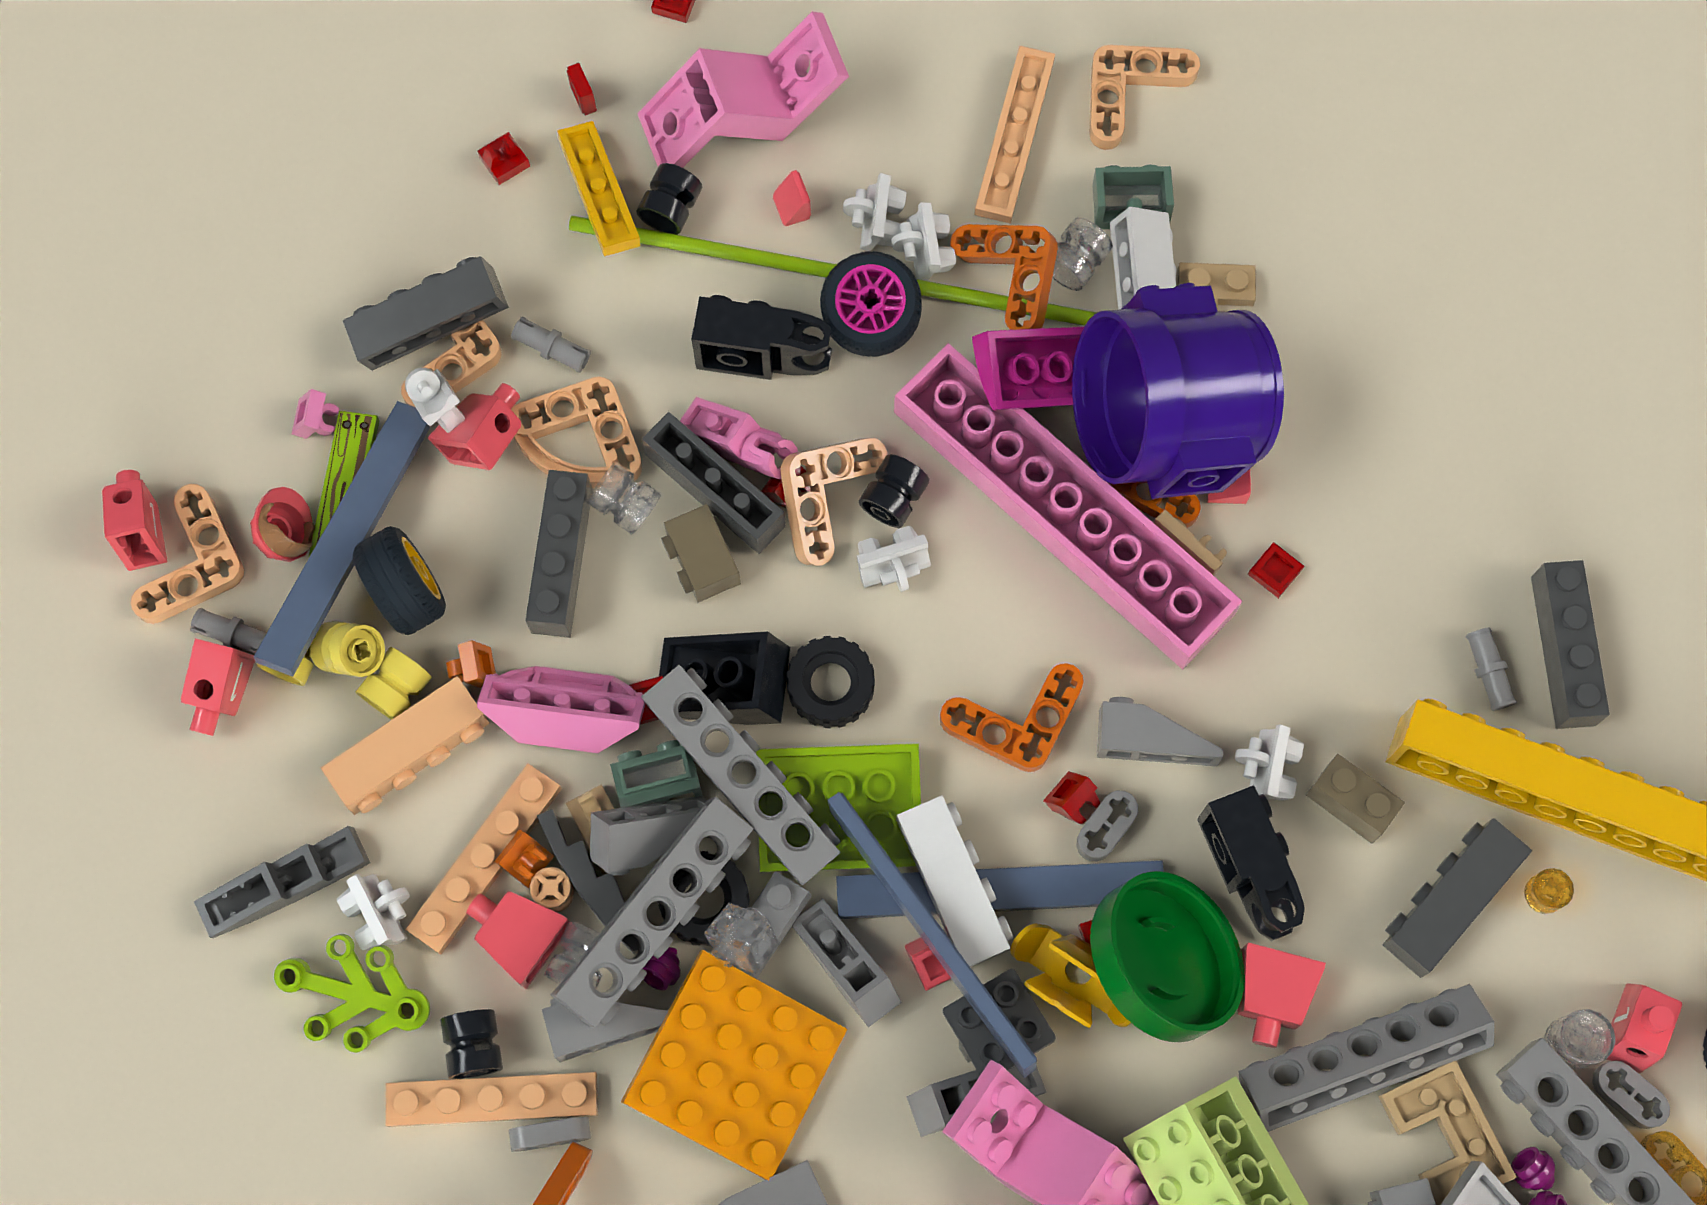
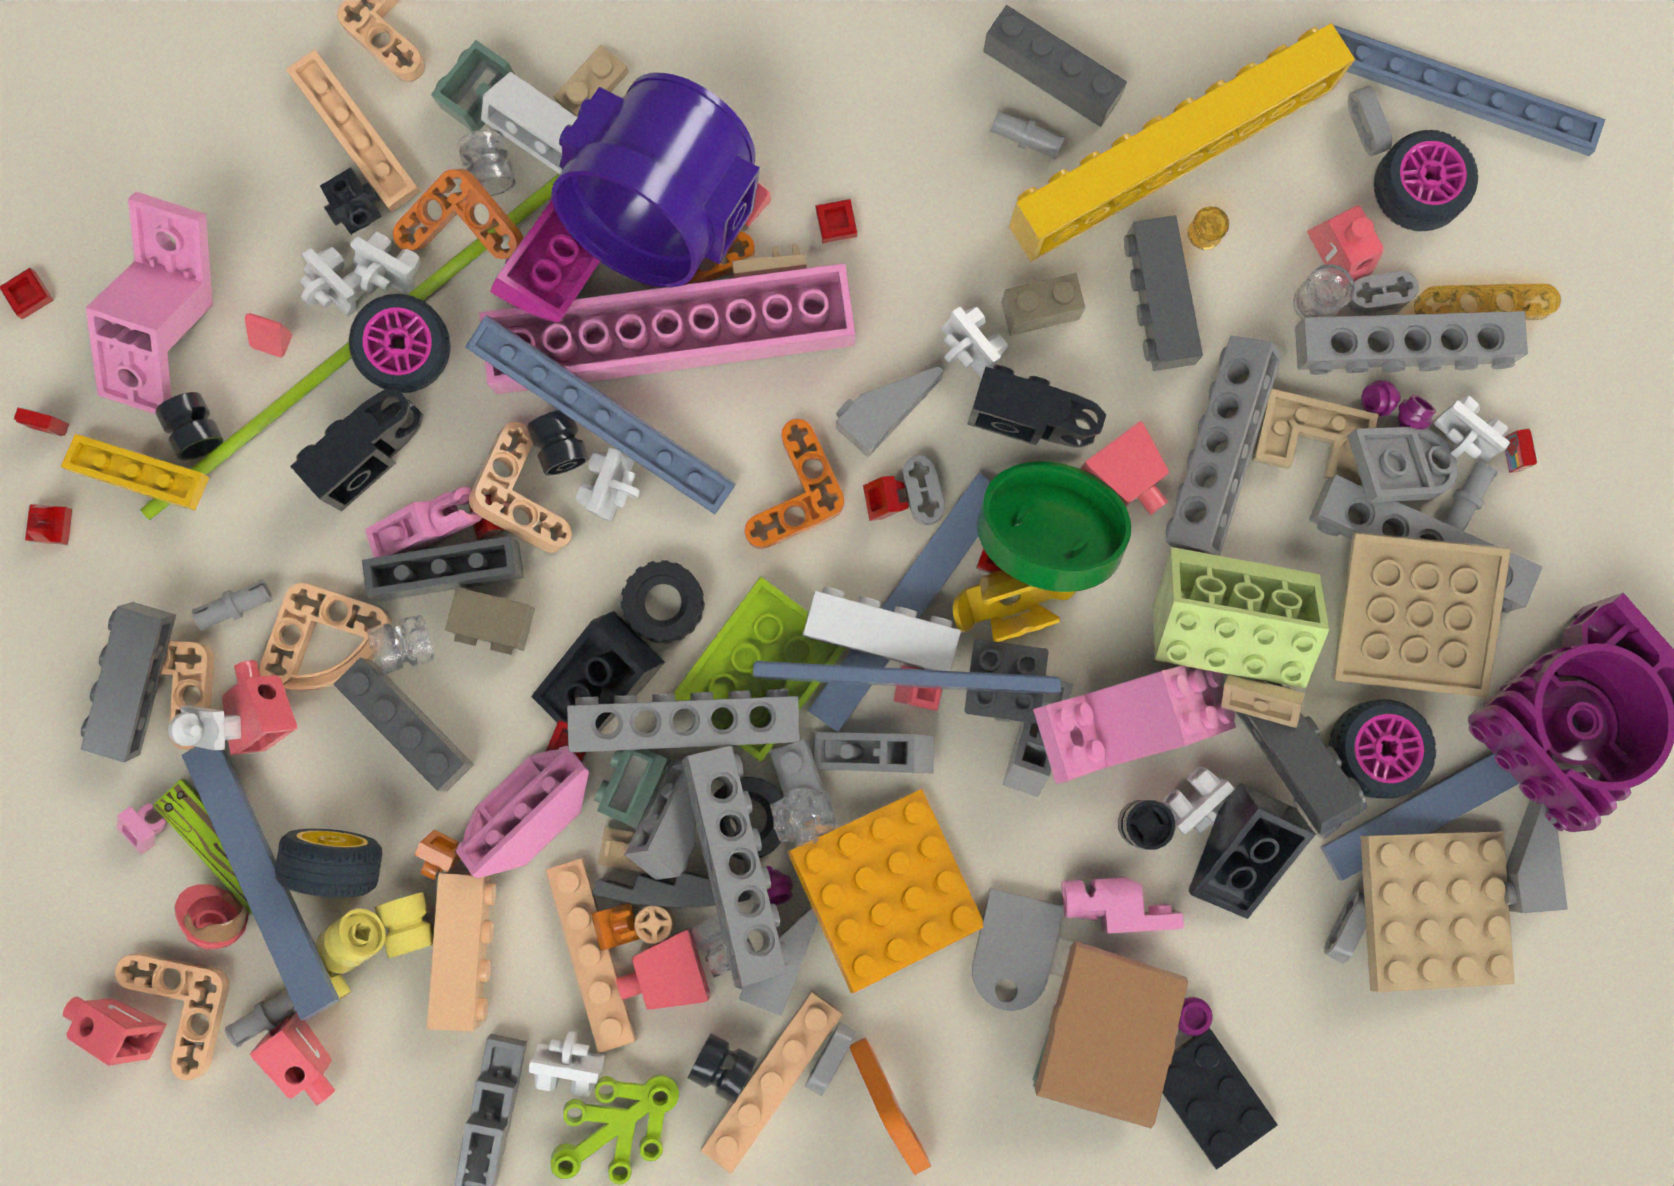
camera: 50 degrees left, 10 degrees up
(945, 507) = (600, 414): none -> sand blue tile
(955, 176) = (350, 201): none -> black brick

